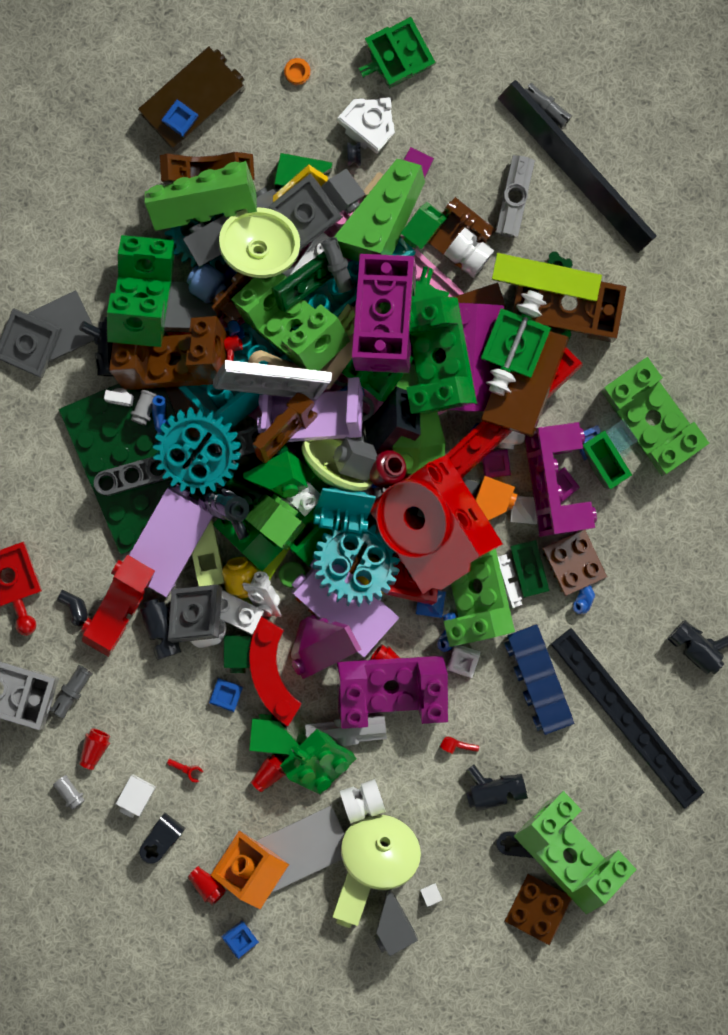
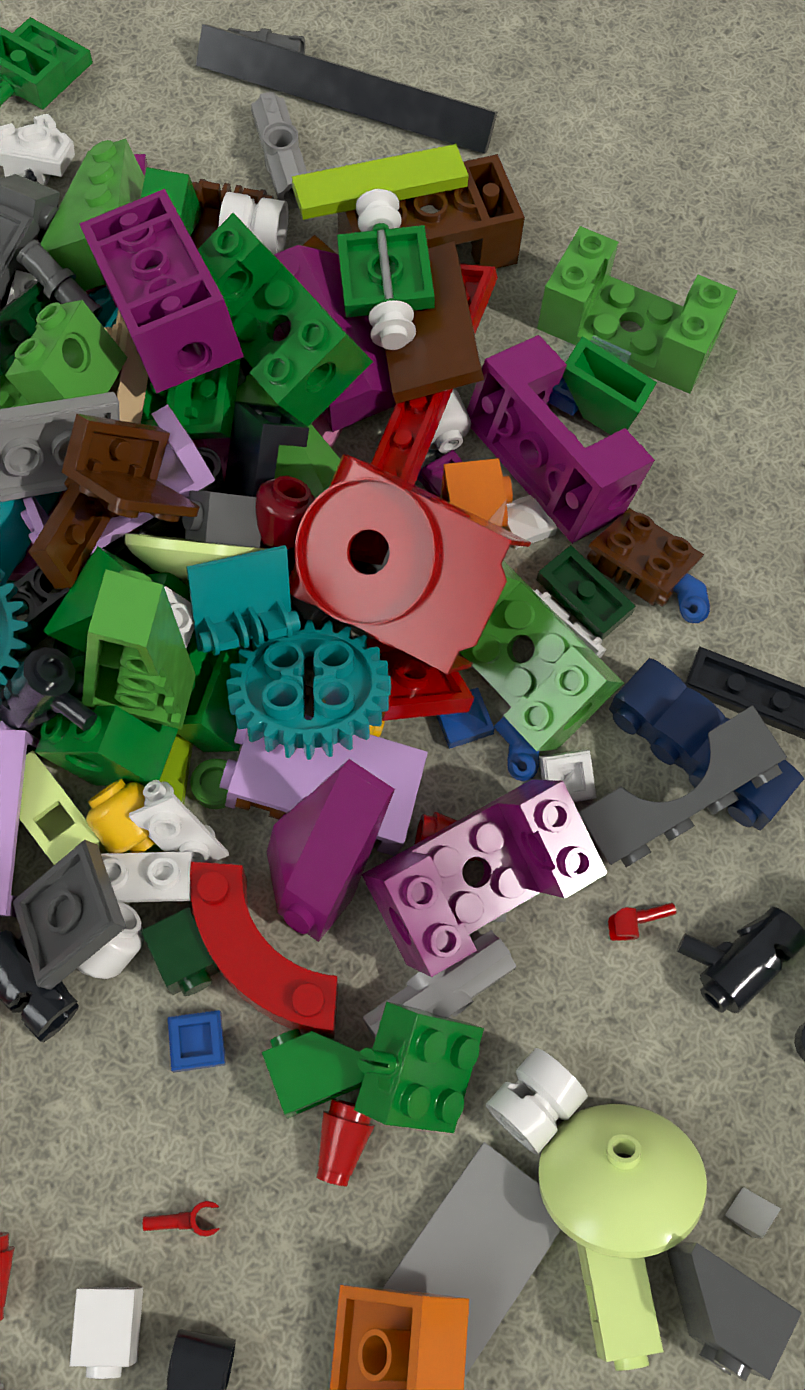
camera: 25 degrees left, 20 degrees down
(314, 426) = (122, 467): none -> reddish brown bracket
(477, 700) = (738, 753): none -> dark grey arch

